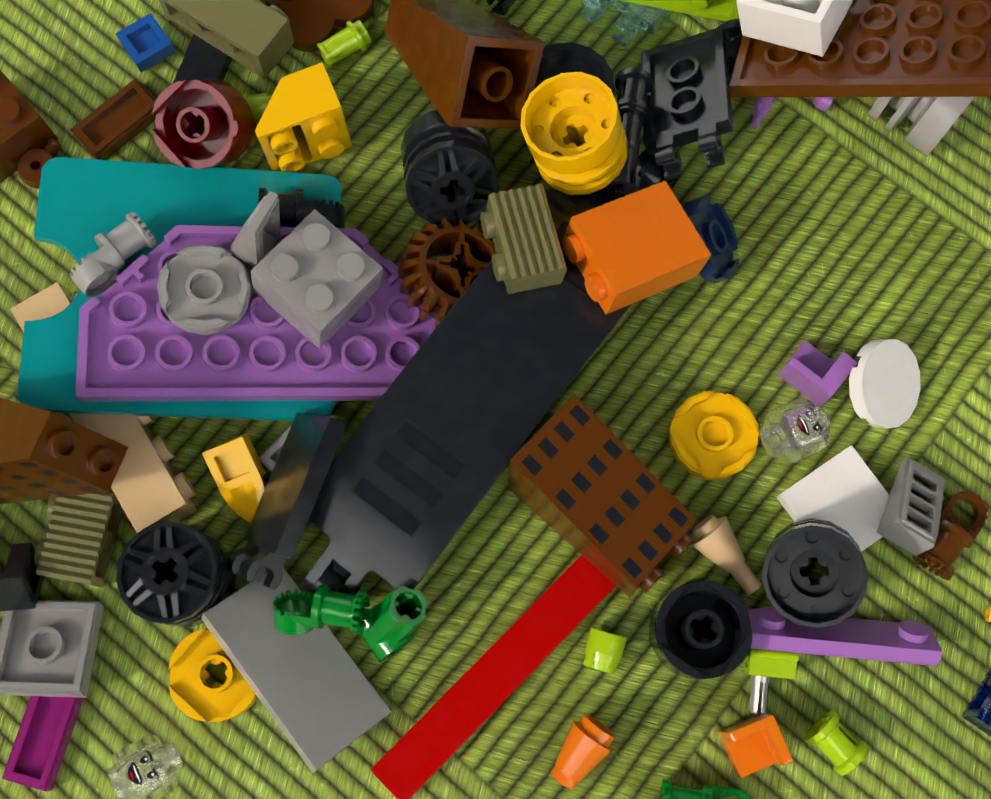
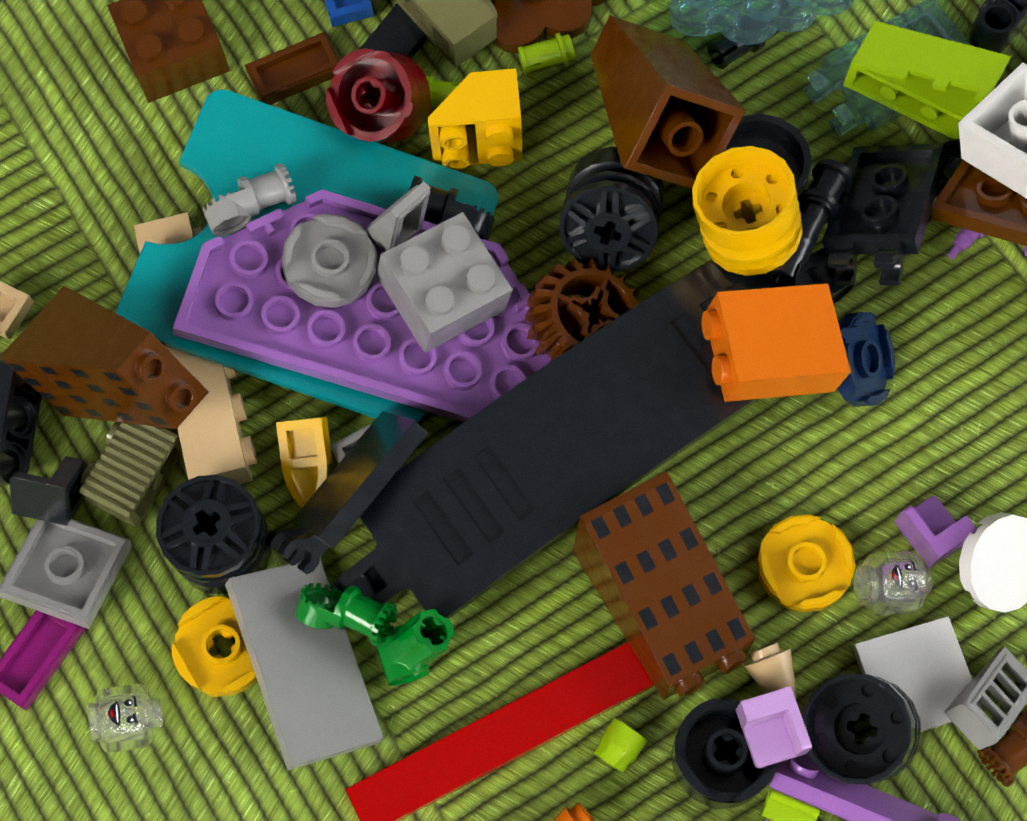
camera: 20 degrees right, 5 degrees down
(32, 161) = (201, 85): reddish brown piece -> none
(523, 239) = (663, 301): olive brick -> none
(742, 598) = (773, 727): none -> lavender panel

